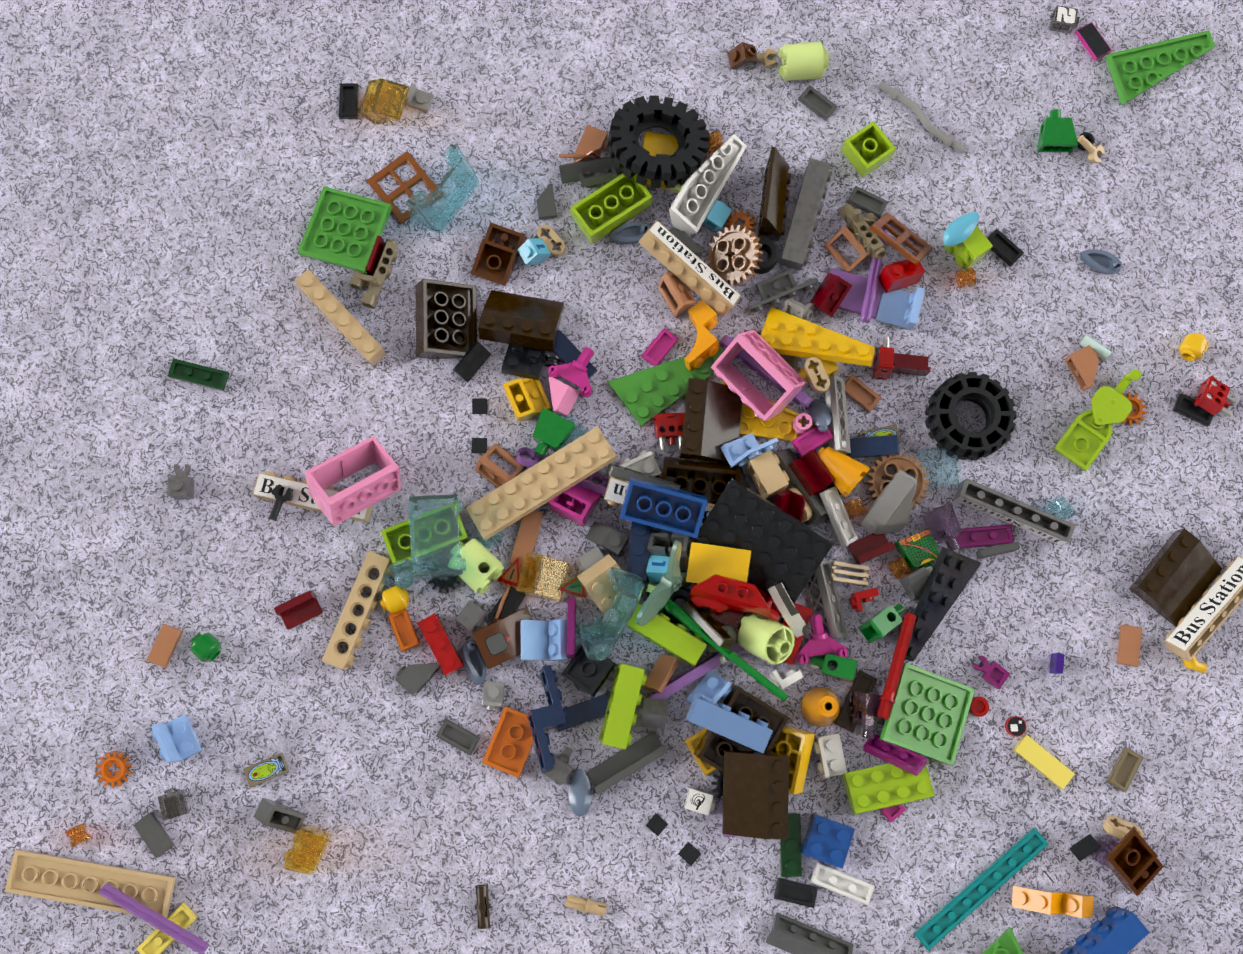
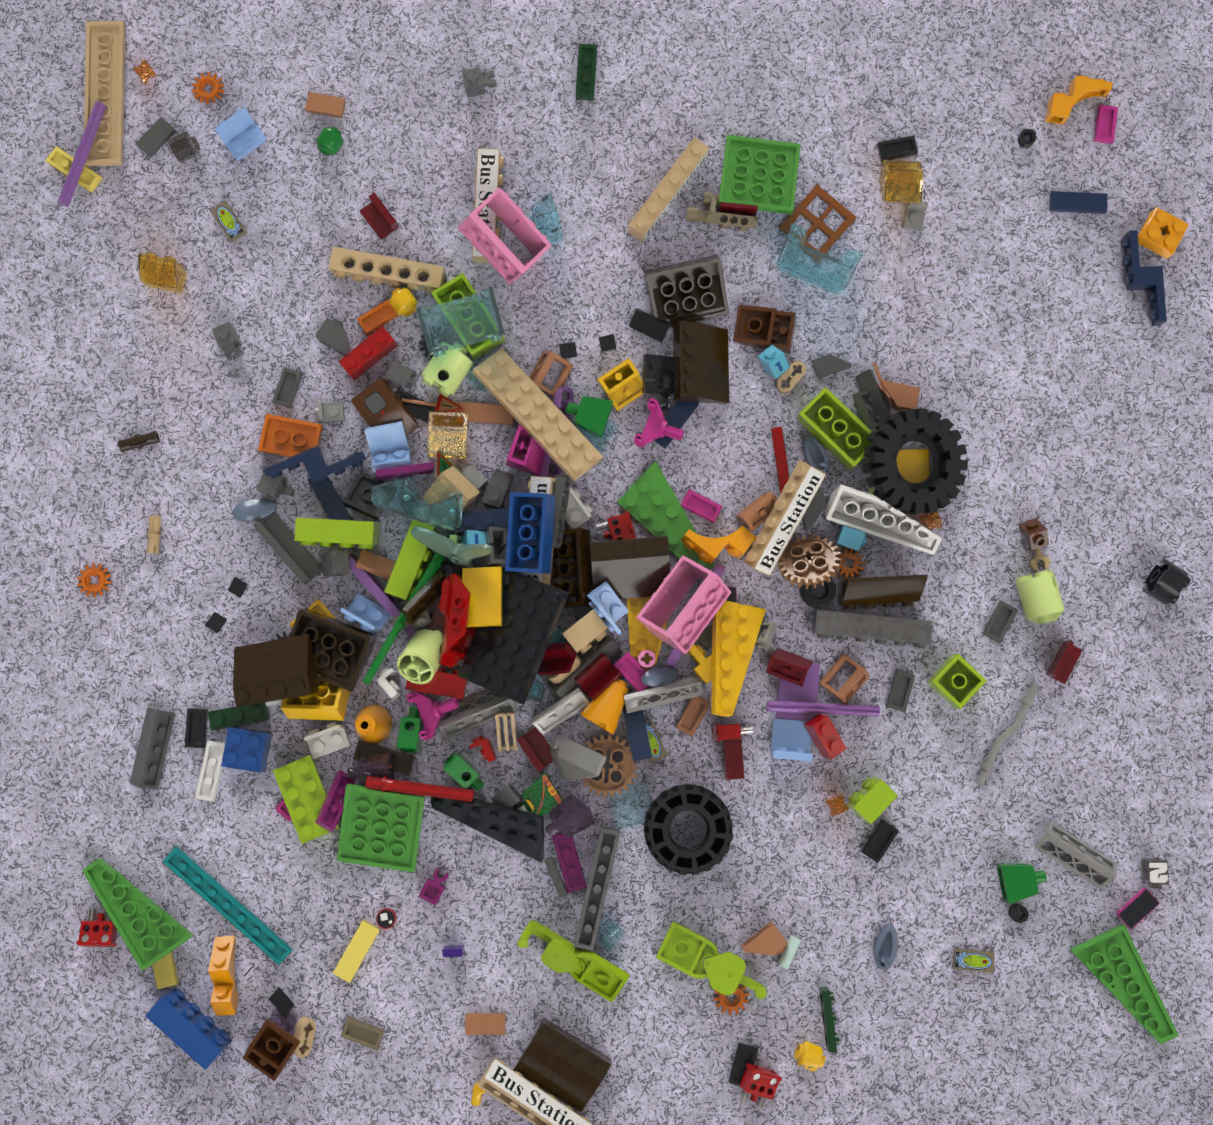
camera: 80 degrees right, 5 degrees up
(279, 501) = (475, 173): black bar -> none
(279, 816) = (188, 242): dark grey slope -> none
(342, 436) = (546, 219): none -> clear light blue slope
(394, 790) = (227, 339): none -> flat silver brick
(402, 573) = (427, 299): clear light blue tile -> none
(474, 662) = (356, 386): sand blue arm -> none
(562, 396) = (630, 418): bright pink slope -> none
(631, 265) = (780, 456): none -> red axle
(699, 801) = (263, 622): white brick -> none
(729, 724) = (332, 633): medium blue brick -> none
(777, 287) = (787, 613): dark grey bracket -> none
(788, 610) = (454, 673): white sticker -> none
(820, 372) = (697, 666): tan beam -> none
(855, 508) = (572, 727): clear orange wheel -> none
(860, 227) = (867, 686): dark tan piece -> none
(863, 56) = (1064, 662): none -> dark red panel
(899, 567) = (521, 780): clear orange wheel -> none
(901, 238) = (863, 729): dark orange window -> none
(960, 229) = (881, 787): medium azure arm -> none
(979, 706) = (399, 879): red tile -> none
(1040, 76) = (1080, 853): none -> light grey fence
(1086, 540) = (582, 964): none -> lime plate
(1093, 150) = (1008, 922): tan bar -> none
(1122, 188) = (973, 960): none -> tile
(1162, 323) = (829, 1019): none -> dark green plate

